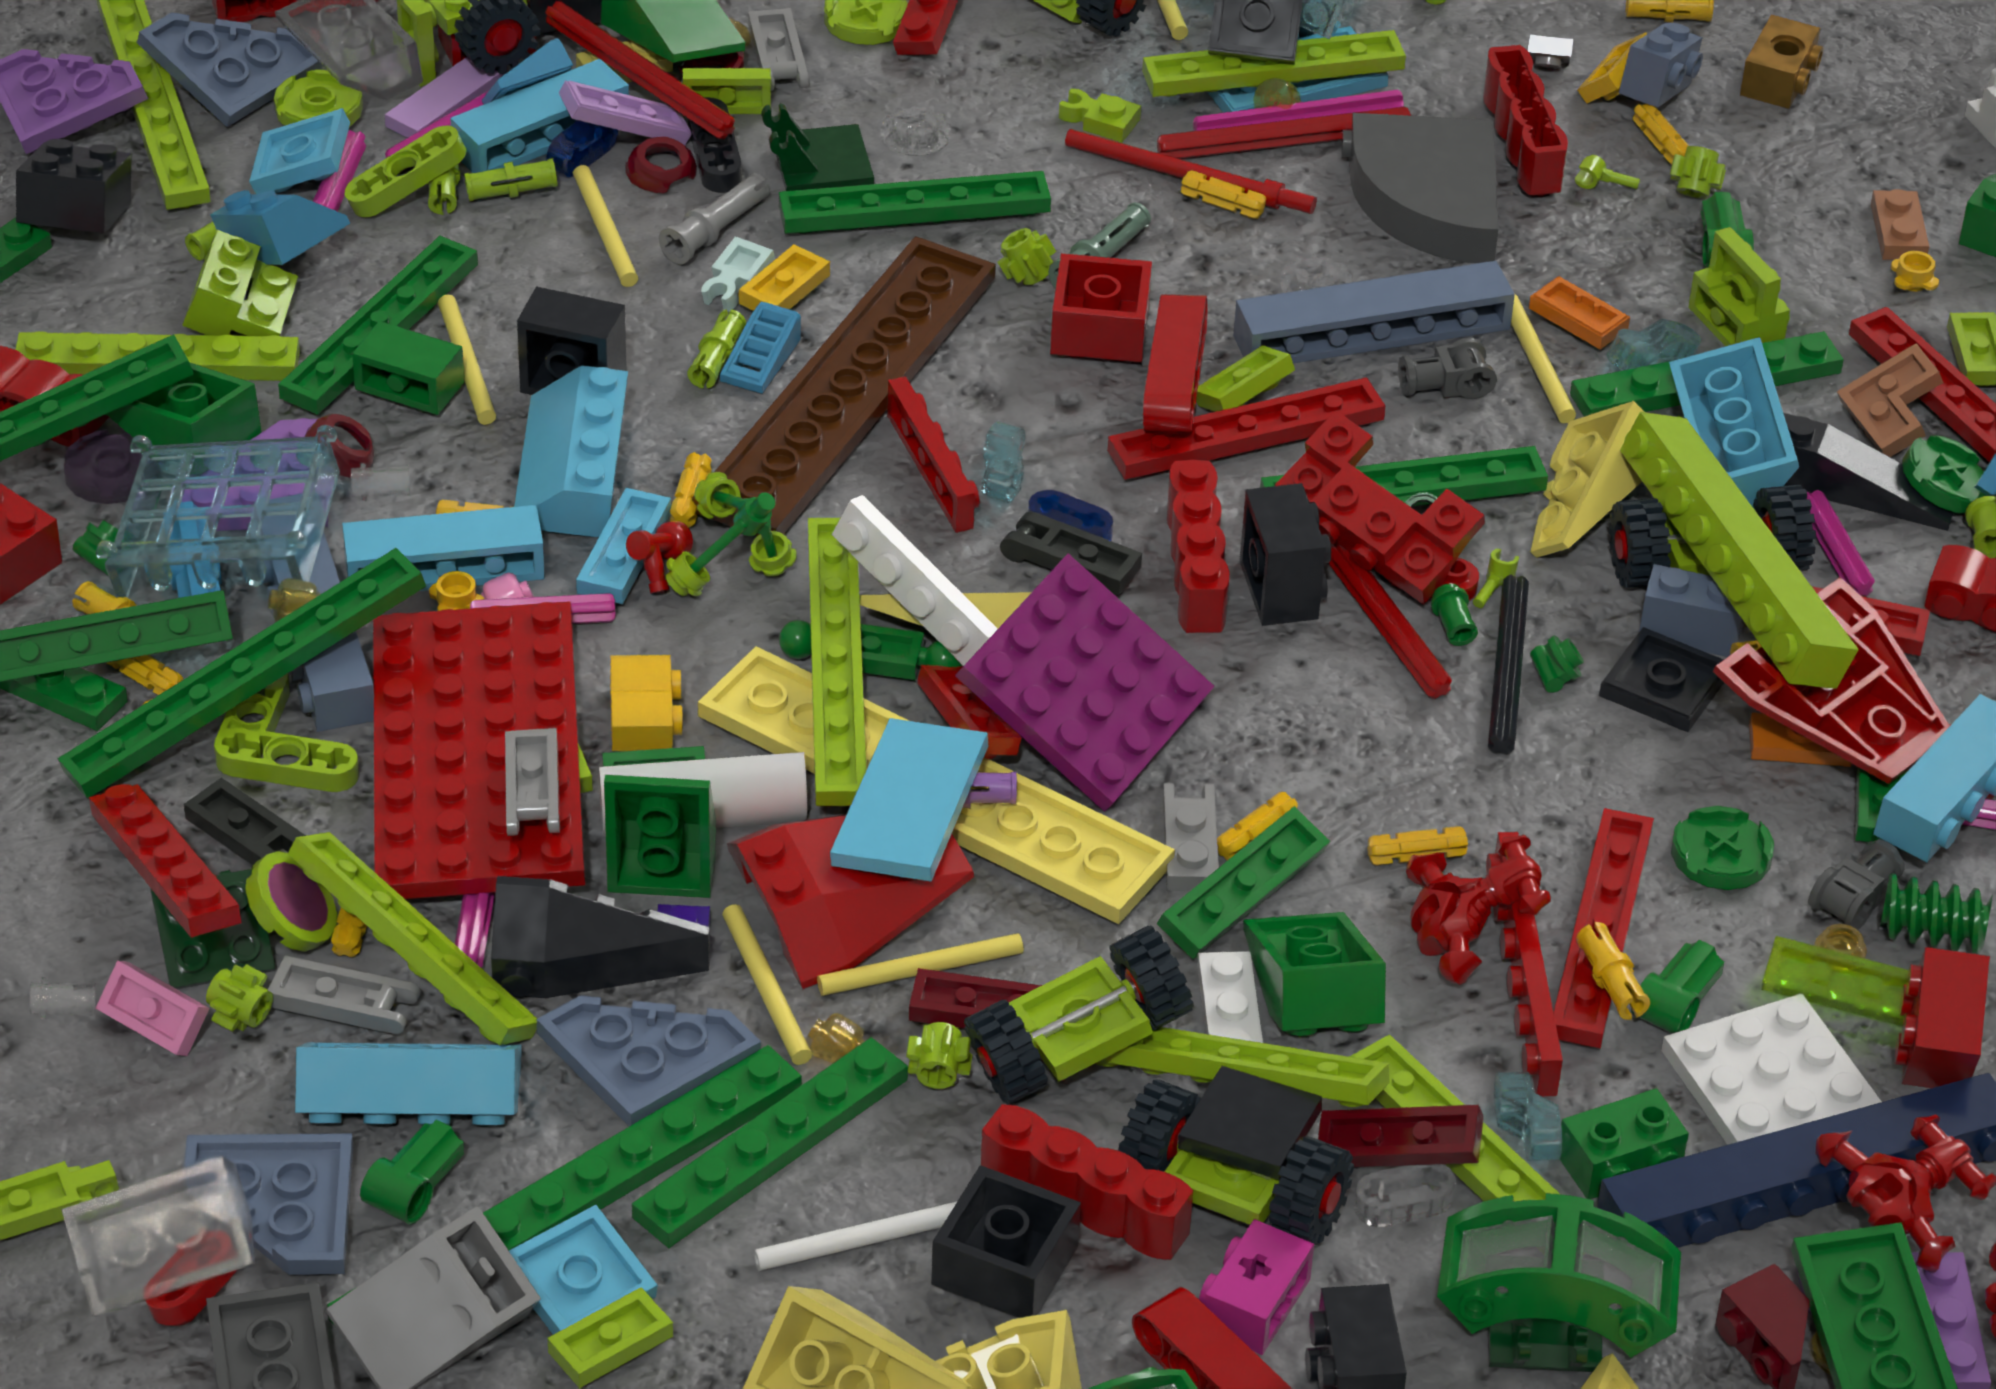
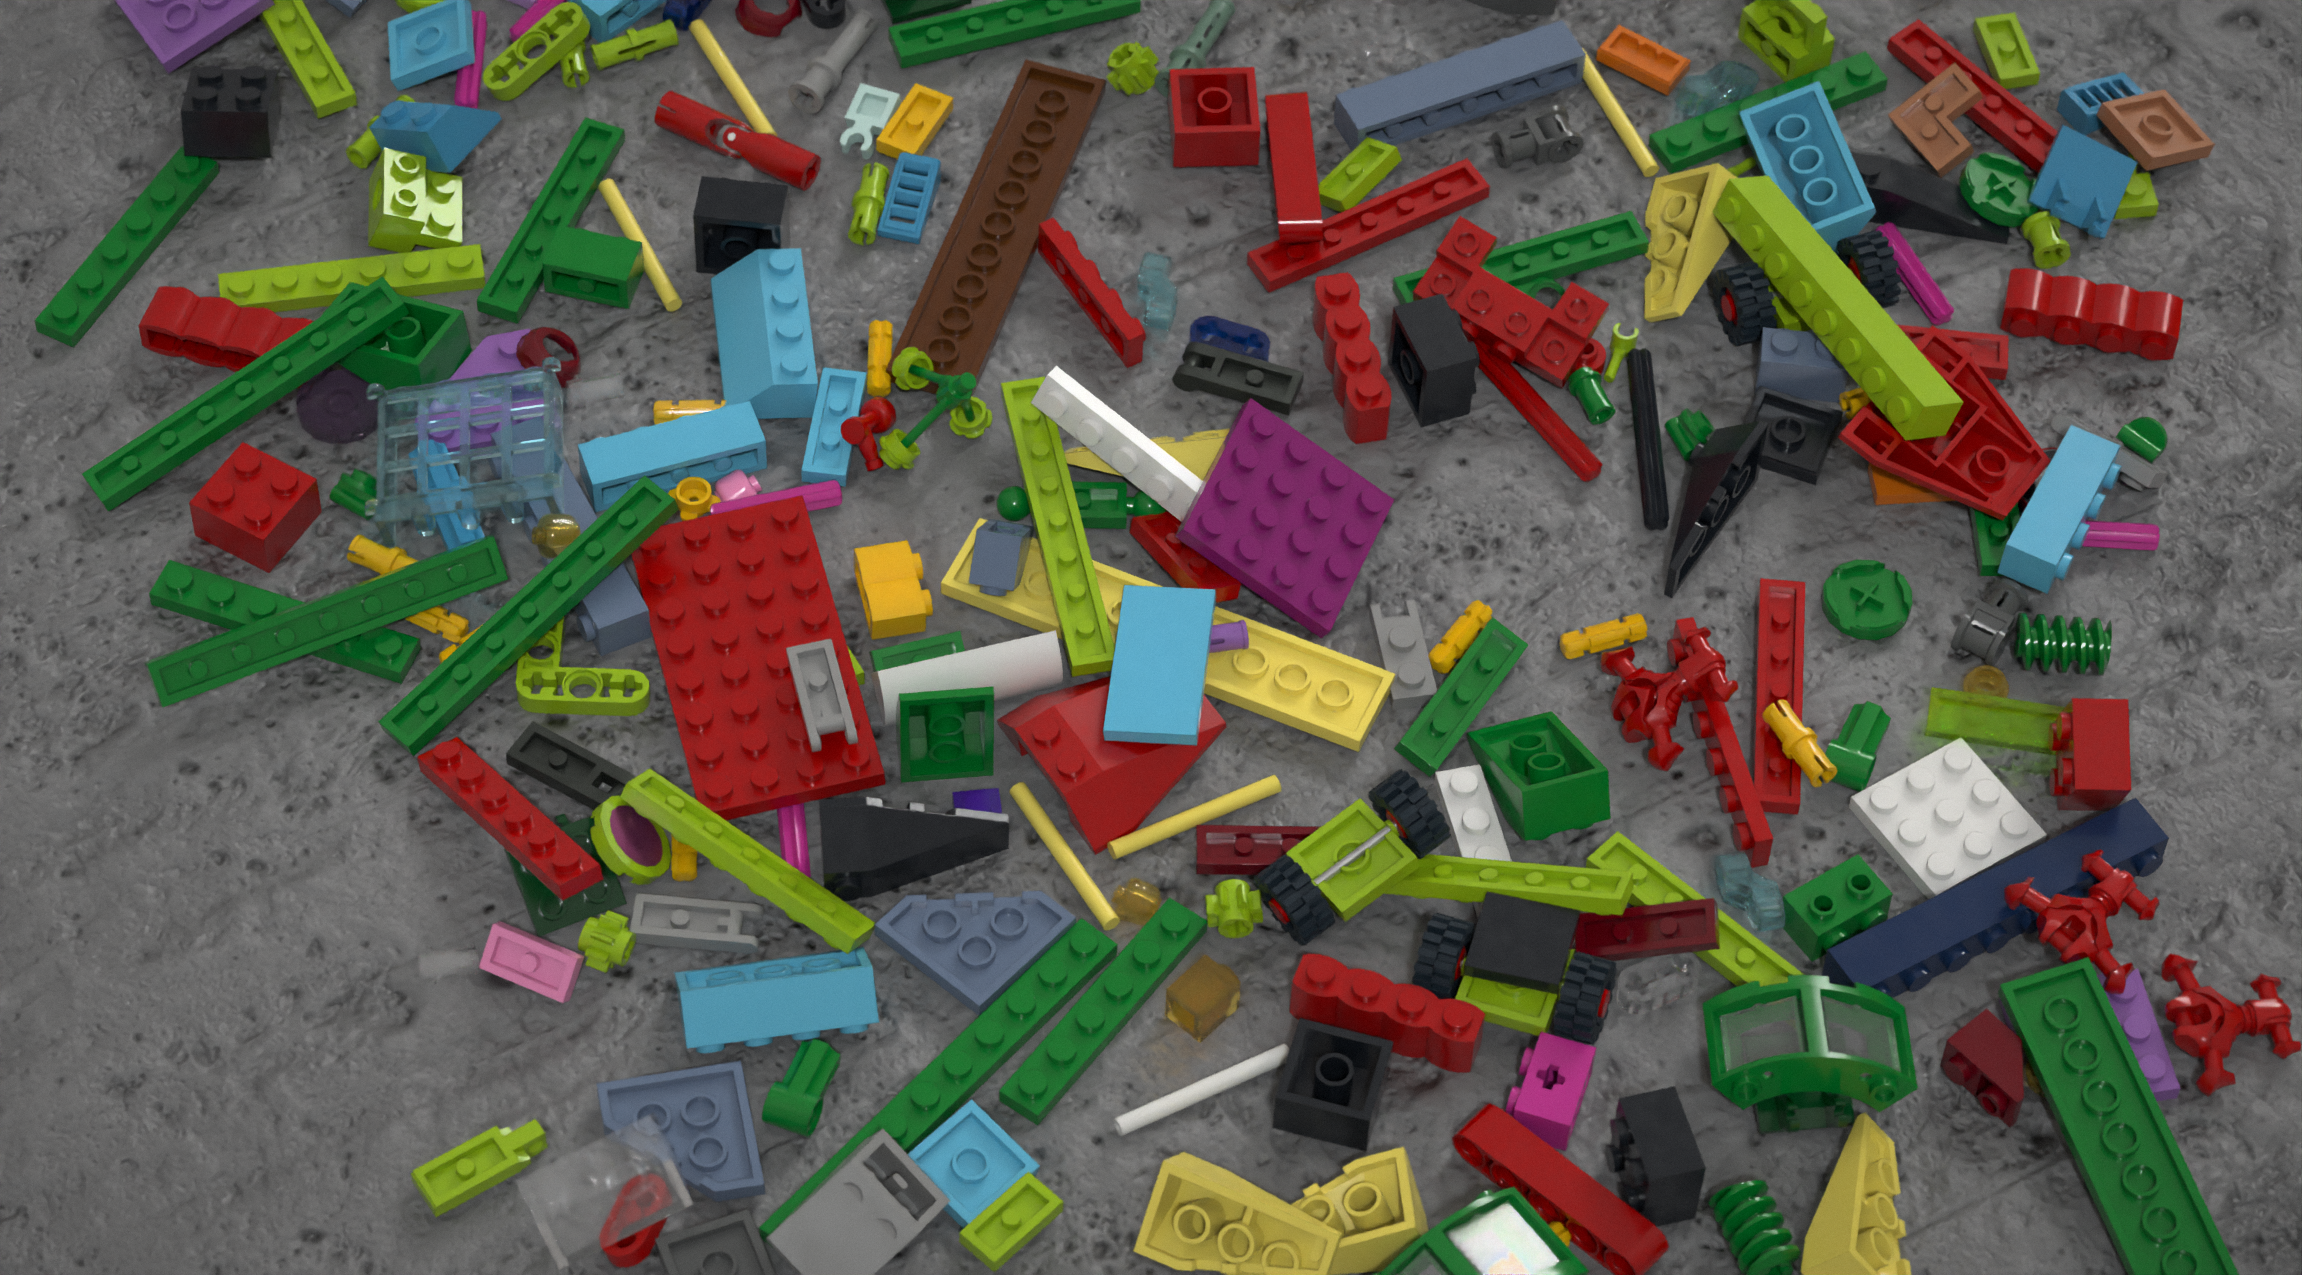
camera: 10 degrees left, 10 degrees up
(565, 258) = (762, 150): none -> red piece
(763, 679) = (1000, 556): none -> sand blue slope
(883, 1140) = (1203, 998): none -> clear yellow brick
(1573, 717) = (1718, 483): none -> black wedge

